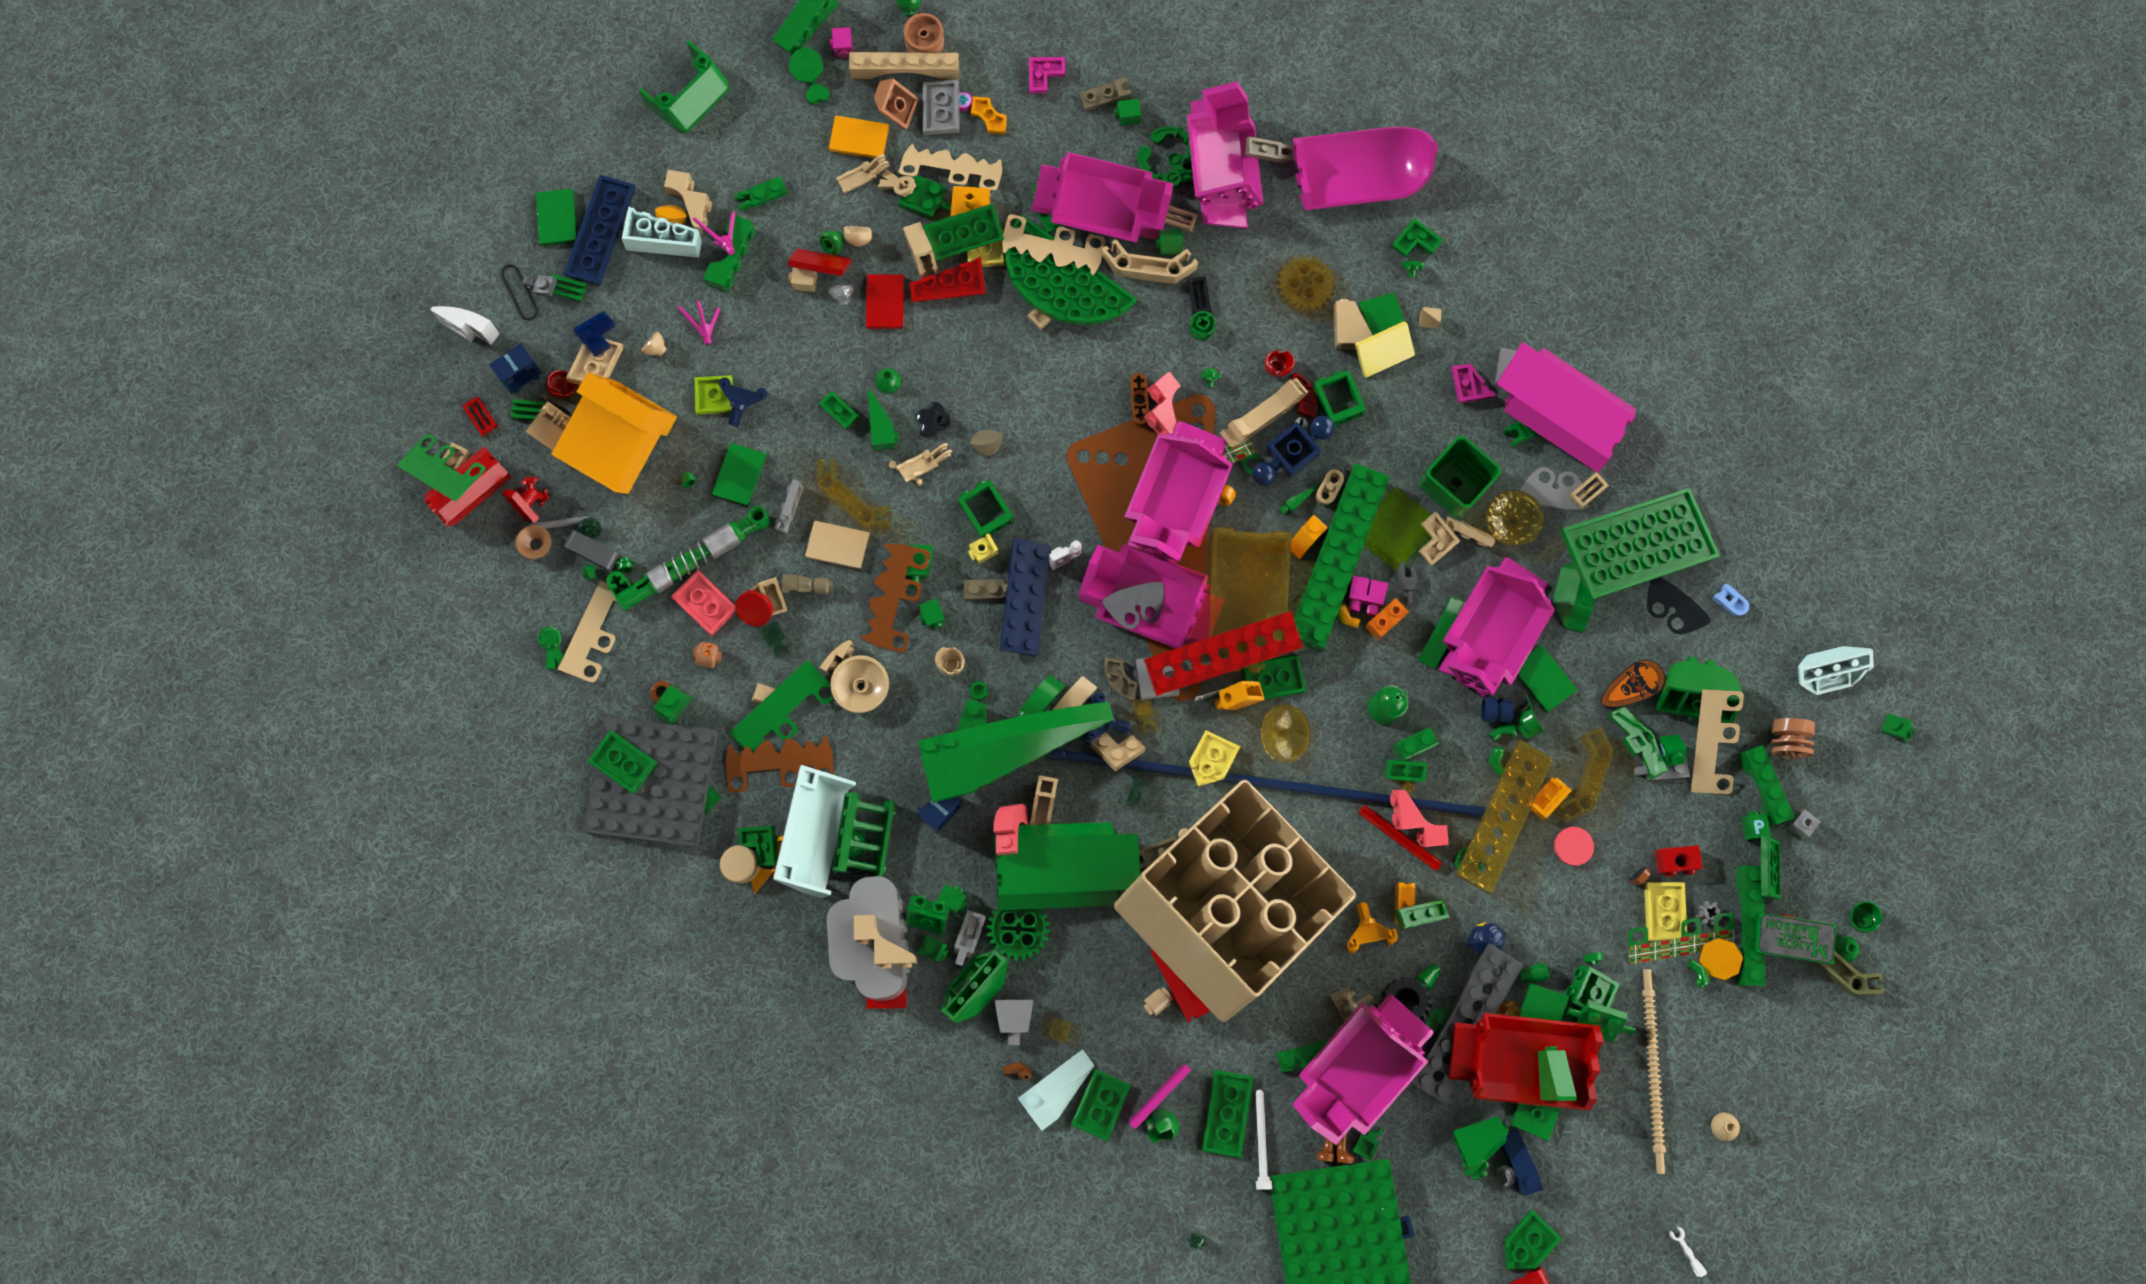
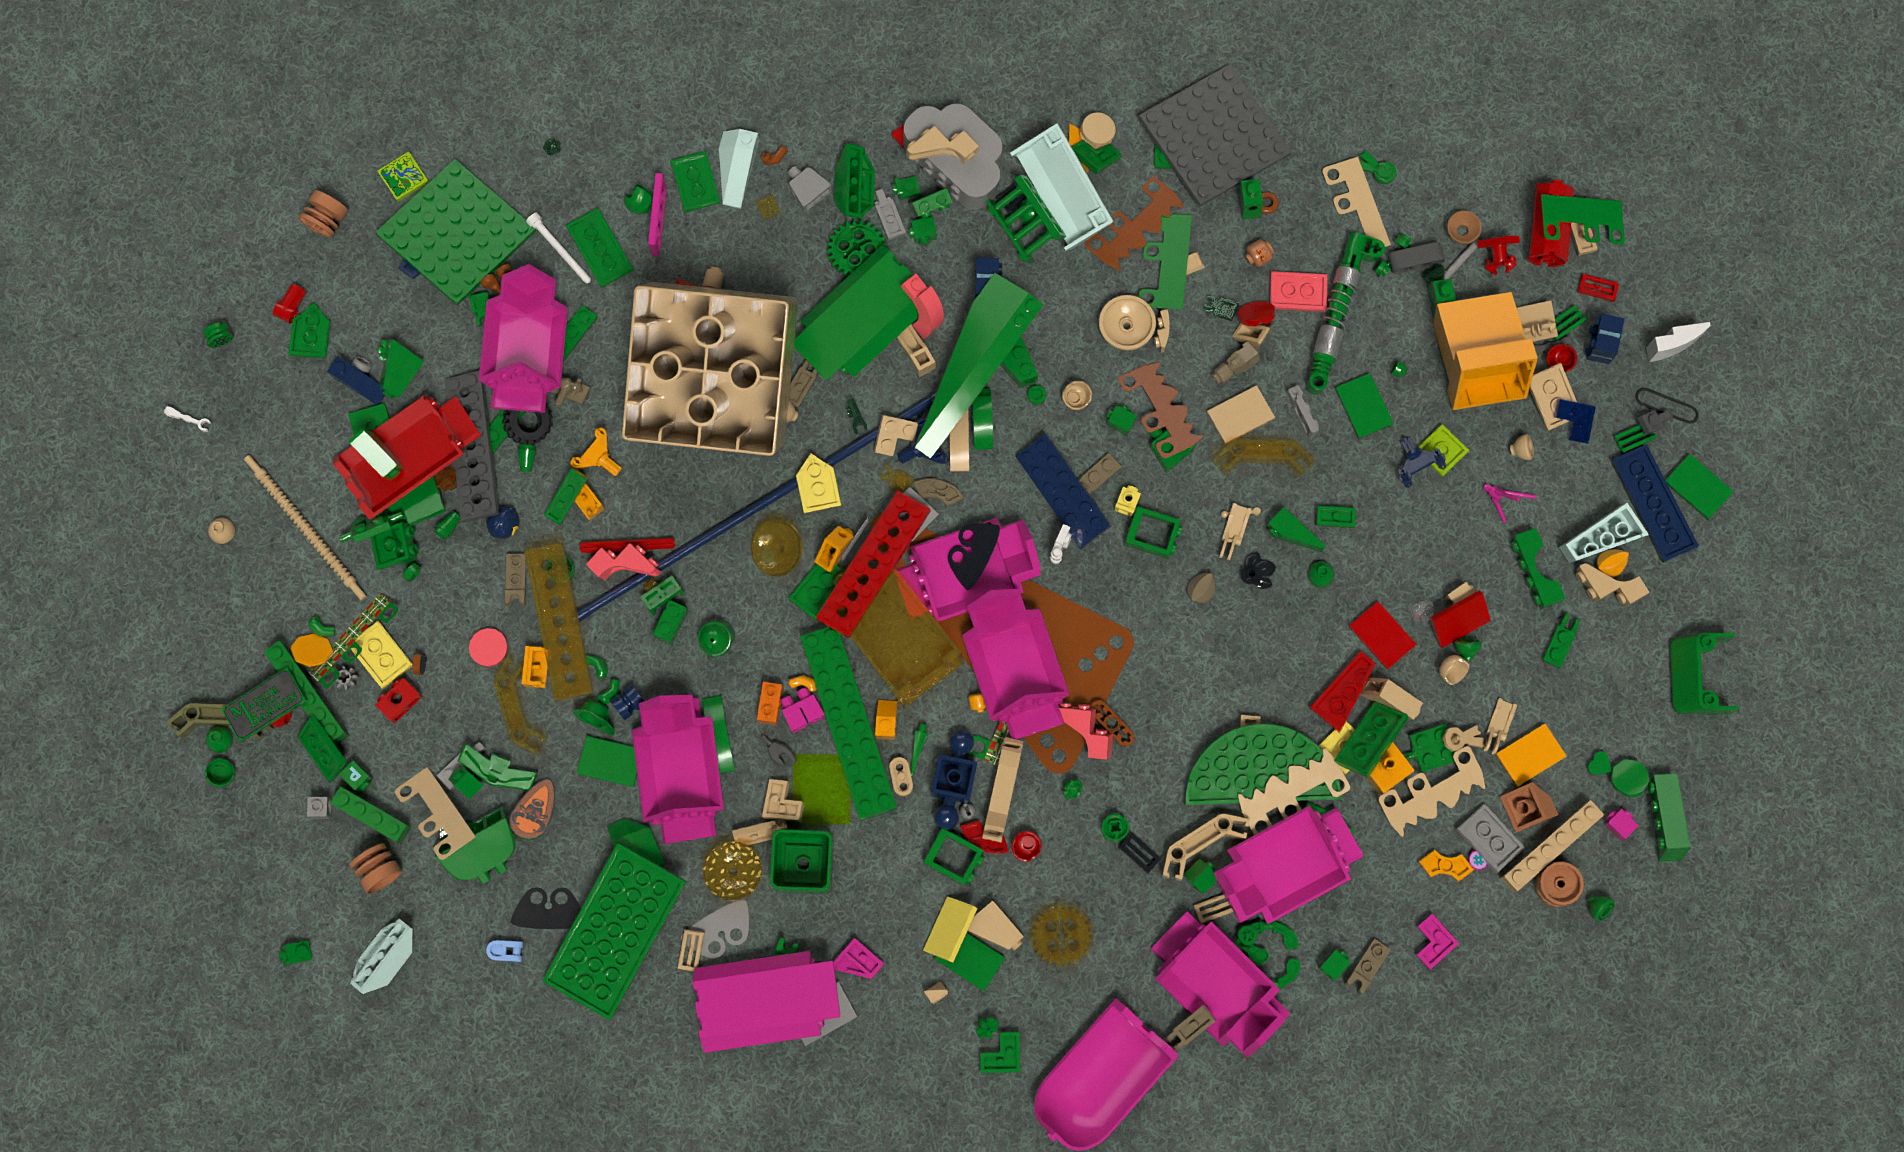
camera: 145 degrees right, 0 degrees up
(603, 503) = (1440, 292): none -> green torso
(622, 762) = (1246, 128): green tile -> none
(723, 241) = (1548, 568): dark pink plant -> none
(1511, 883) = (515, 579): none -> dark tan plate

